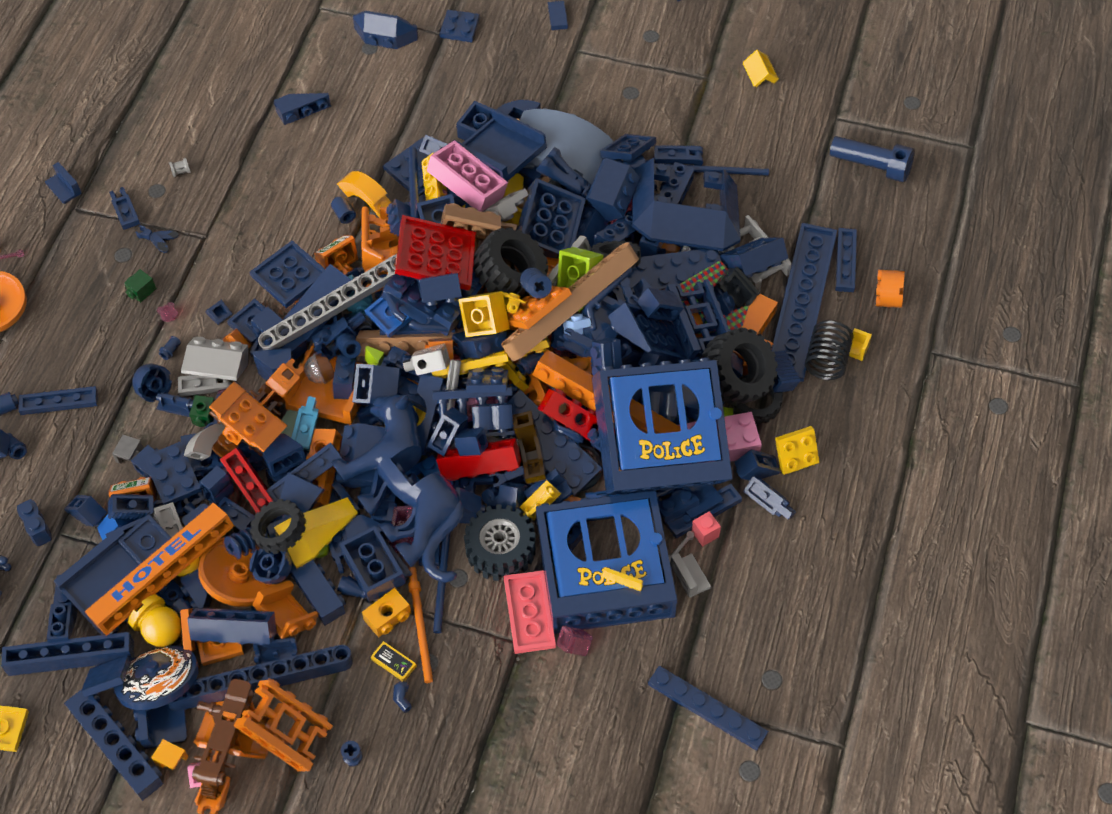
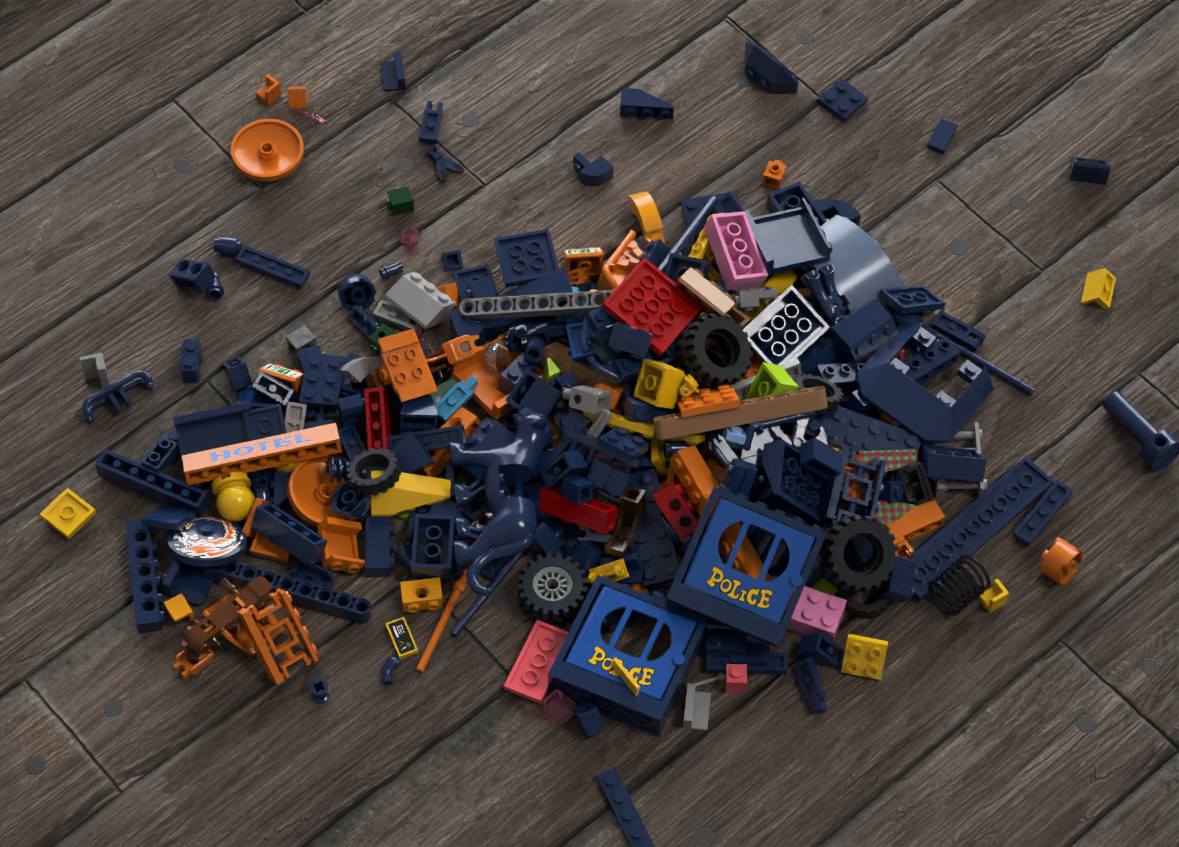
camera: 30 degrees right, 0 degrees up
(179, 167) = (501, 109): light grey bush -> none
(293, 181) = (592, 173): none -> dark blue brick
(343, 209) = (617, 223): dark blue brick -> none
(446, 104) = (775, 171): none -> orange brick
(535, 283) = (717, 380): dark blue piece -> none
(609, 636) = (588, 719): none -> dark blue brick

